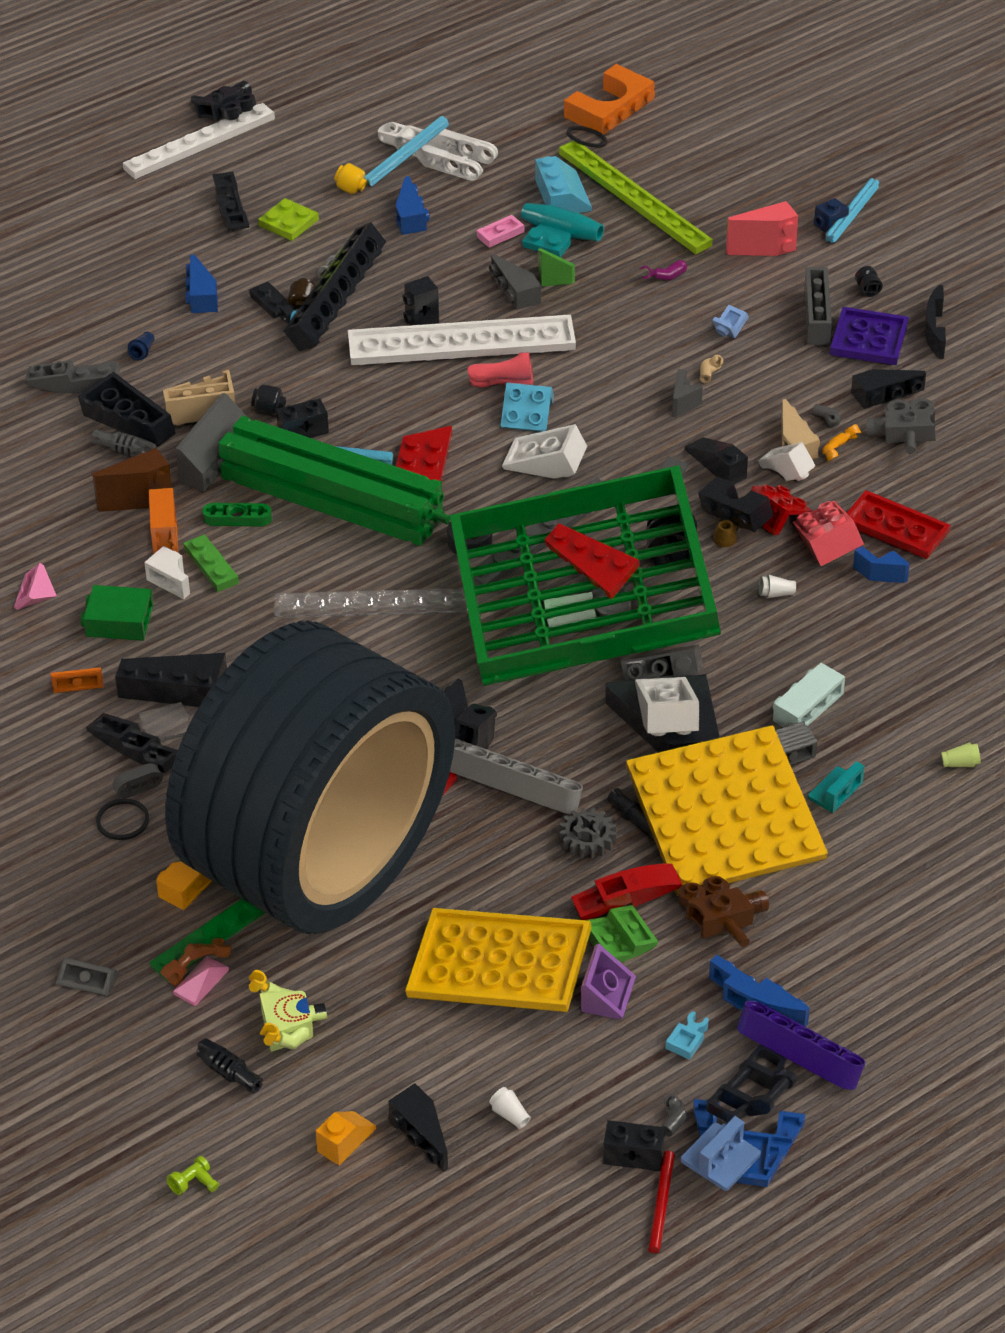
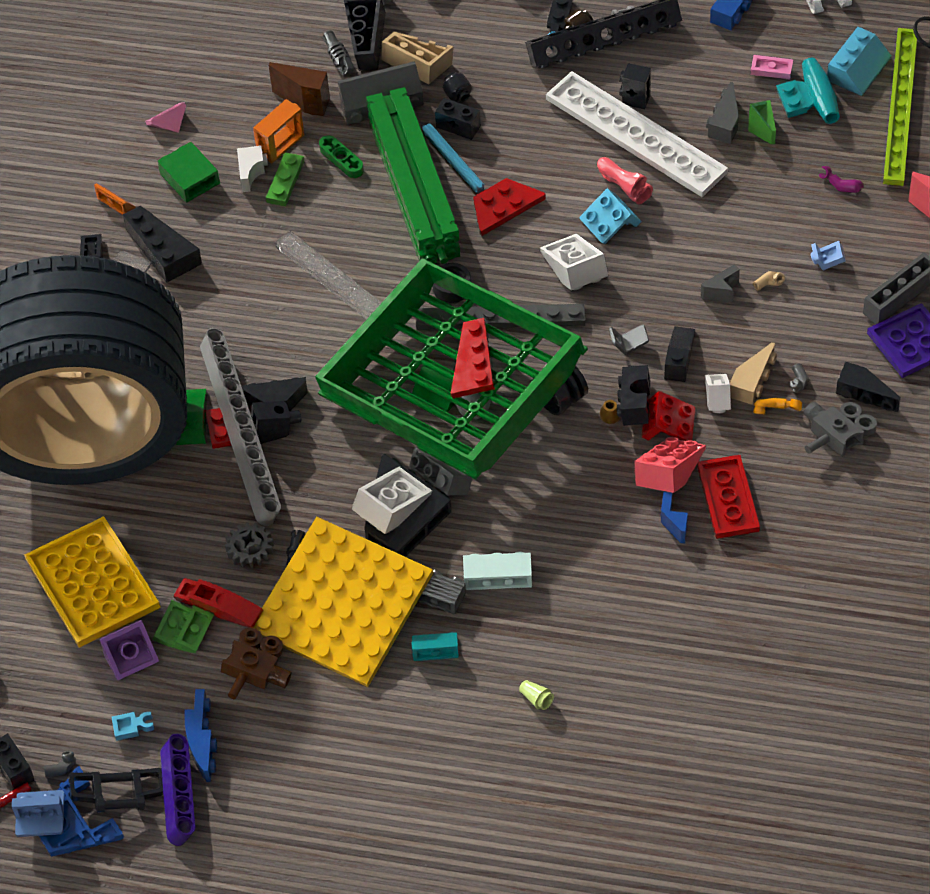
camera: 50 degrees right, 10 degrees up
(775, 587) = (586, 475): white cone -> none

